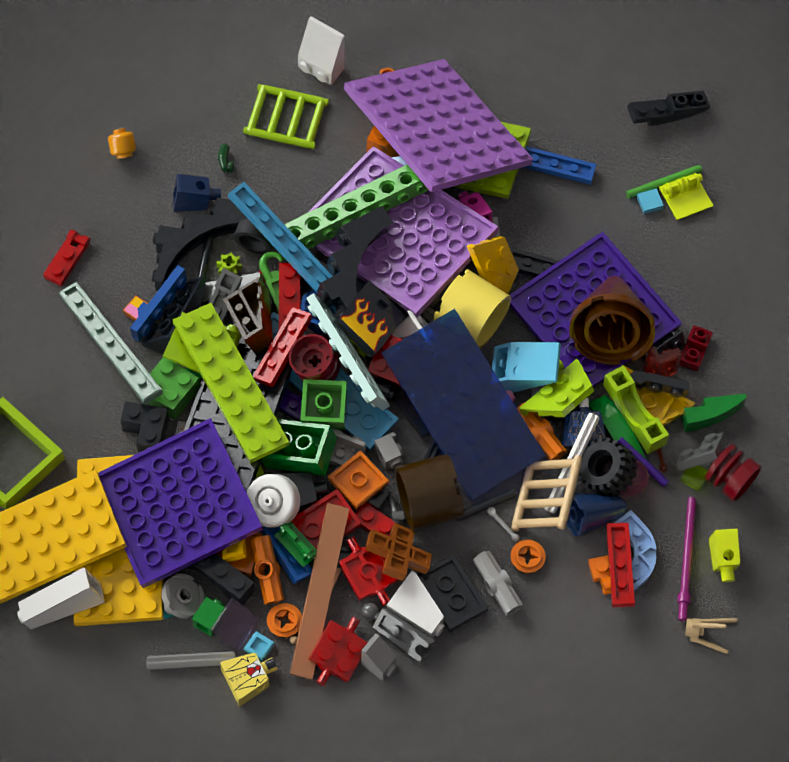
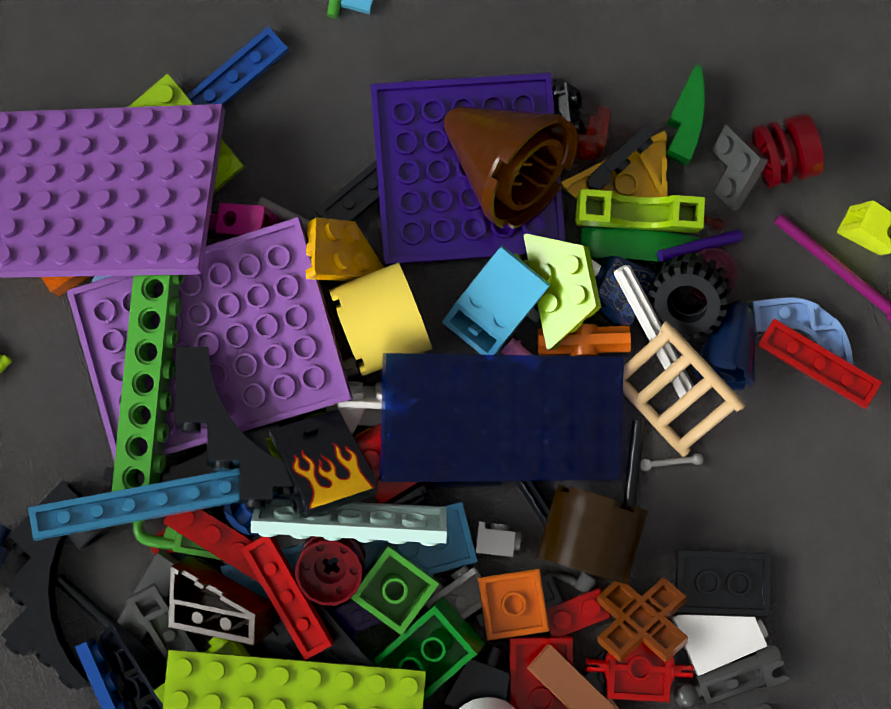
camera: 55 degrees left, 20 degrees up
(231, 260) = (105, 577): lime gear -> none
(498, 583) = (745, 520): light grey piece -> none
(536, 551) = (746, 460): orange gear -> none
(600, 572) = (802, 387): orange plate -> none
(694, 477) = (757, 198): clear neon green tile -> none
(695, 348) = (589, 78): dark red slope -> none

